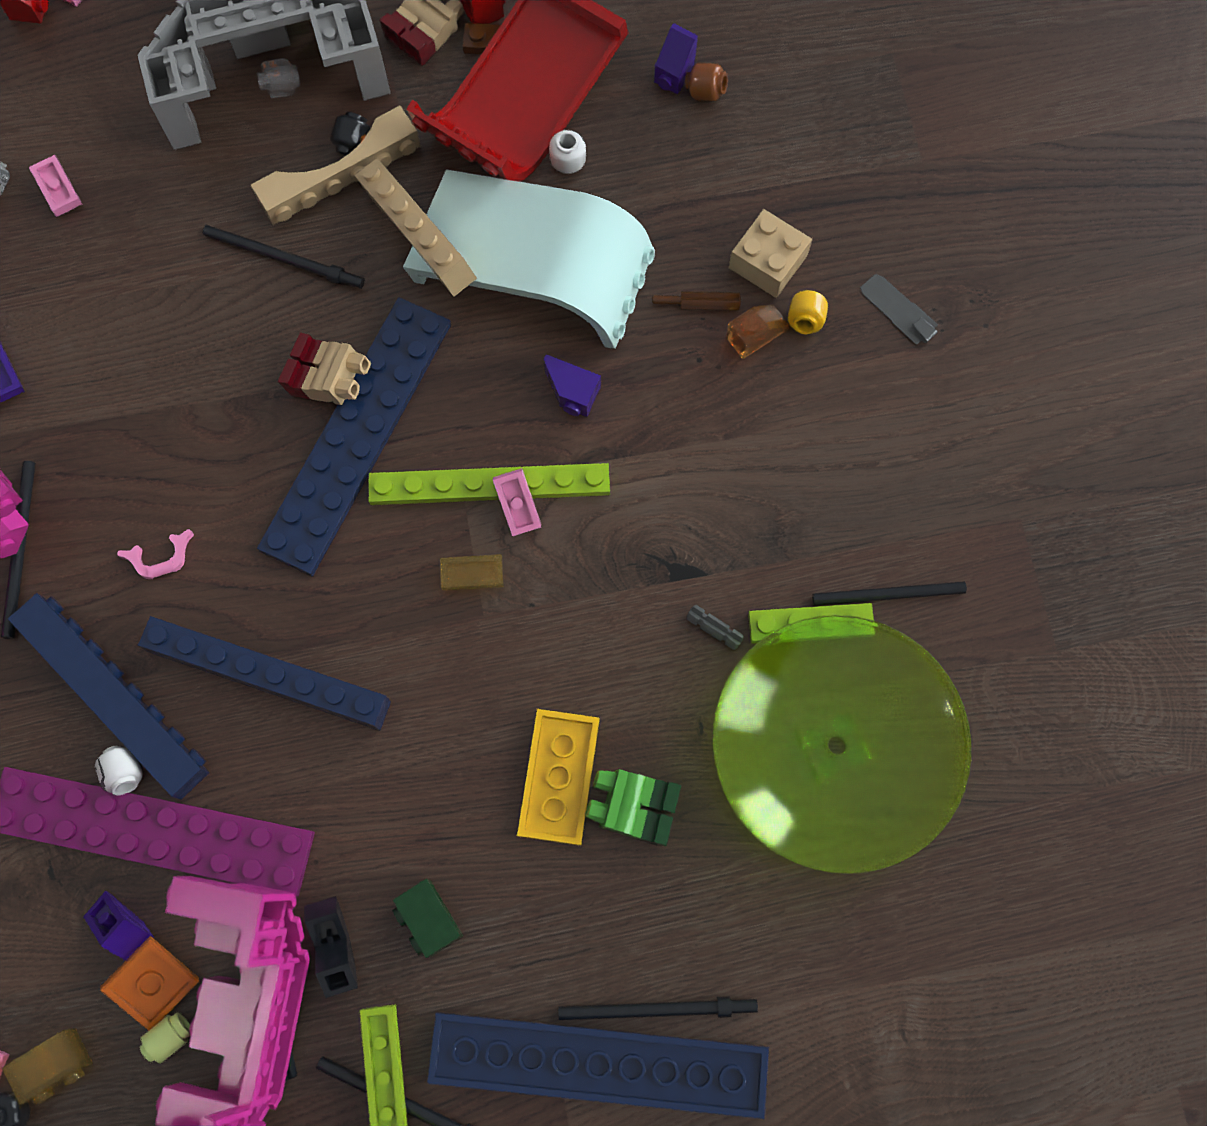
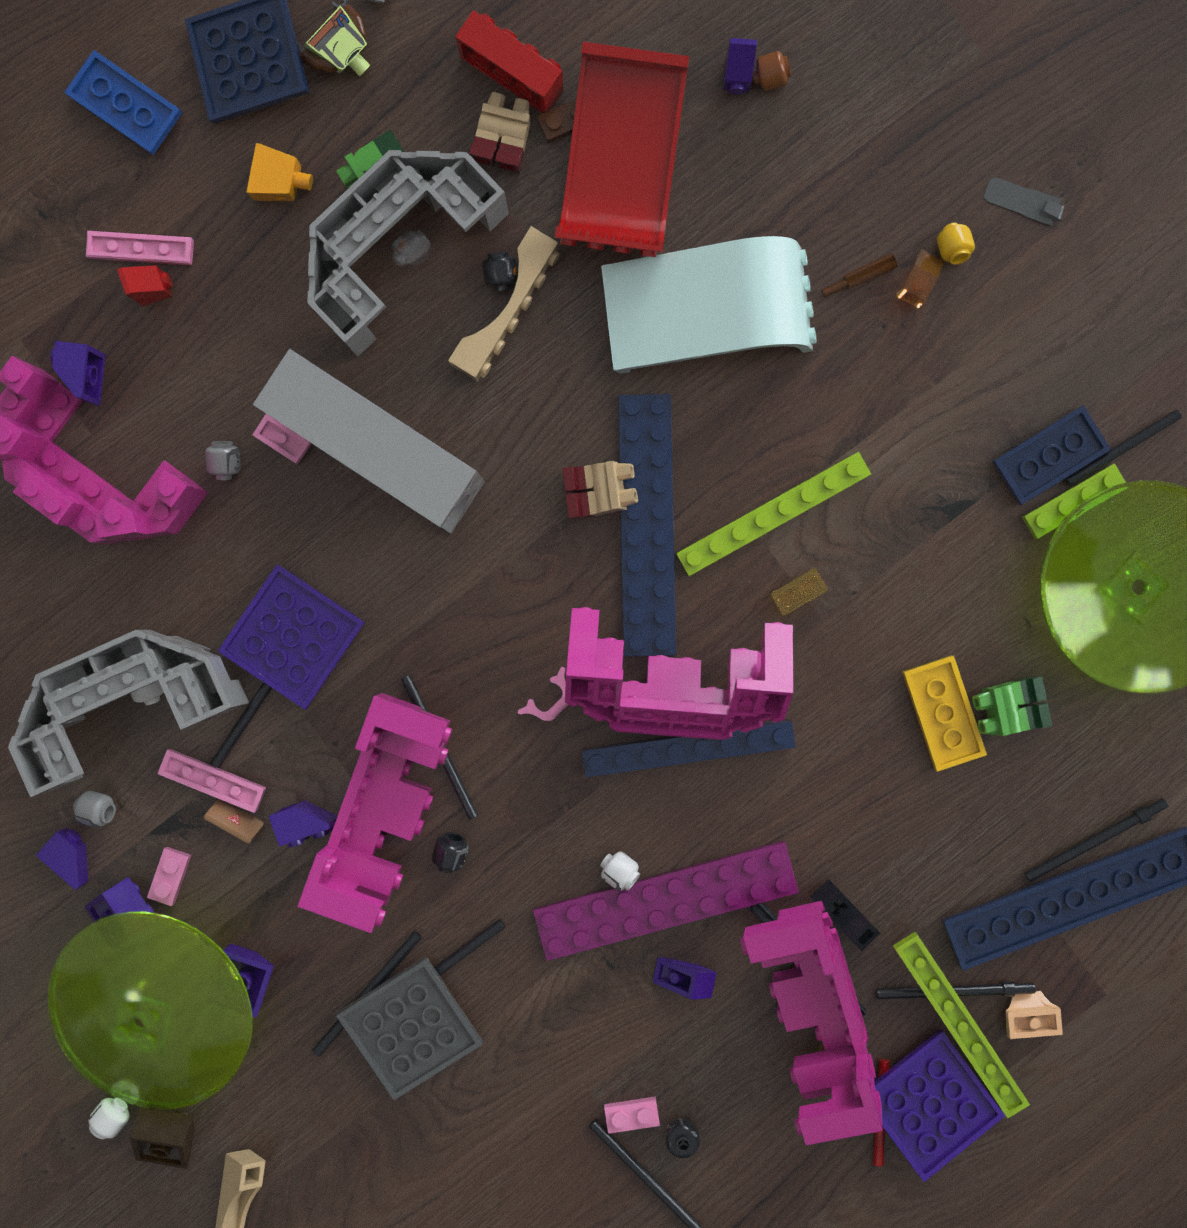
camera: 25 degrees left, 15 degrees up
(47, 1066) = (692, 1092): clear yellow brick -> none
(109, 696) = (578, 821): dark blue brick -> none
(122, 212) = (369, 441): none -> light grey piece
(149, 983) = (731, 1003): orange tile -> none
(165, 1038) = (763, 1032): yellowish green brick -> none
(282, 608) = (672, 696): none -> dark pink brick
(333, 273) = (555, 400): black bar -> none
(416, 227) = (609, 332): tan arch -> none
(426, 919) = (903, 861): dark green brick -> none
(517, 502) = (807, 520): bright pink plate -> none
(567, 151) = (690, 197): white head -> none
(572, 385) = (798, 402): dark purple slope -> none
(715, 627) = (1003, 541): dark grey axle -> none
(770, 253) = (901, 206): tan brick -> none
(807, 562) = (1051, 455): none -> dark blue plate

